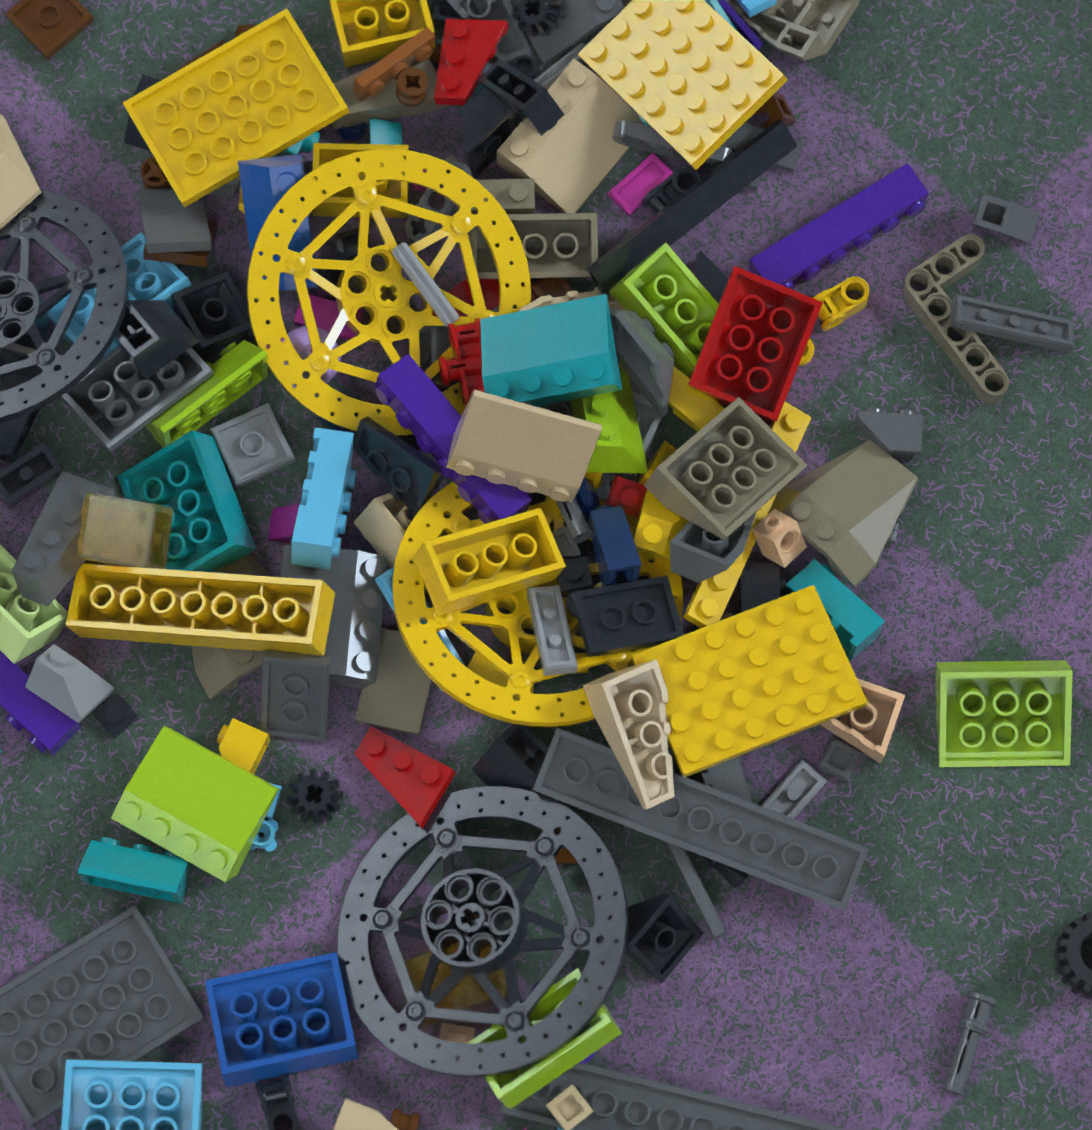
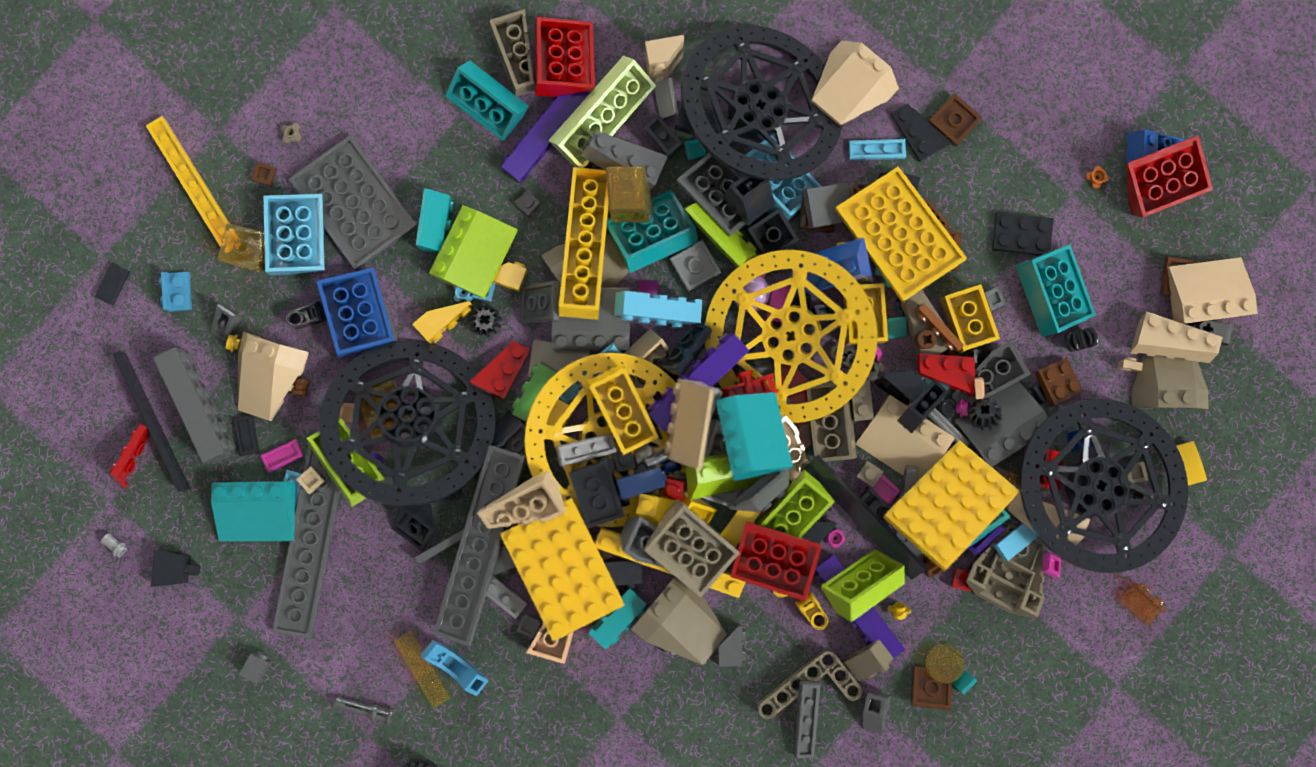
camera: 85 degrees right, 10 degrees up
(52, 431) = (694, 149): none -> teal tile
(63, 75) = (919, 132): none -> black wing
(67, 683) = (540, 173): light grey slope -> none
(85, 143) = (876, 149): none -> medium azure tile
(309, 881) = (436, 321): none -> yellow slope
(425, 284) = (796, 357): light grey axle -> none
(447, 718) = (540, 375): none -> bright green brick
(497, 13) = (979, 388): none -> light nougat tile
(526, 45) = (963, 408): none -> dark pink plate
(622, 196) = (869, 474): none -> dark tan plate
(728, 254) = (835, 543): none -> dark pink plate
(779, 538) = (656, 582): light nougat brick -> none
(800, 213) = (864, 584): none -> lime slope
(802, 73) = (959, 579): none -> red plate
(845, 170) = (899, 610): none -> yellow plate
(903, 878) = (455, 665): none -> dark azure arch
(903, 940) = (422, 669): none -> clear yellow plate
(923, 218) = (869, 660): none -> dark tan brick
(932, 109) = (944, 663): none -> clear yellow tile
(962, 83) = (964, 682): none -> teal slope
(970, 132) = (928, 692): none -> reddish brown plate
(1003, 713) = (563, 723): lime slope -> none

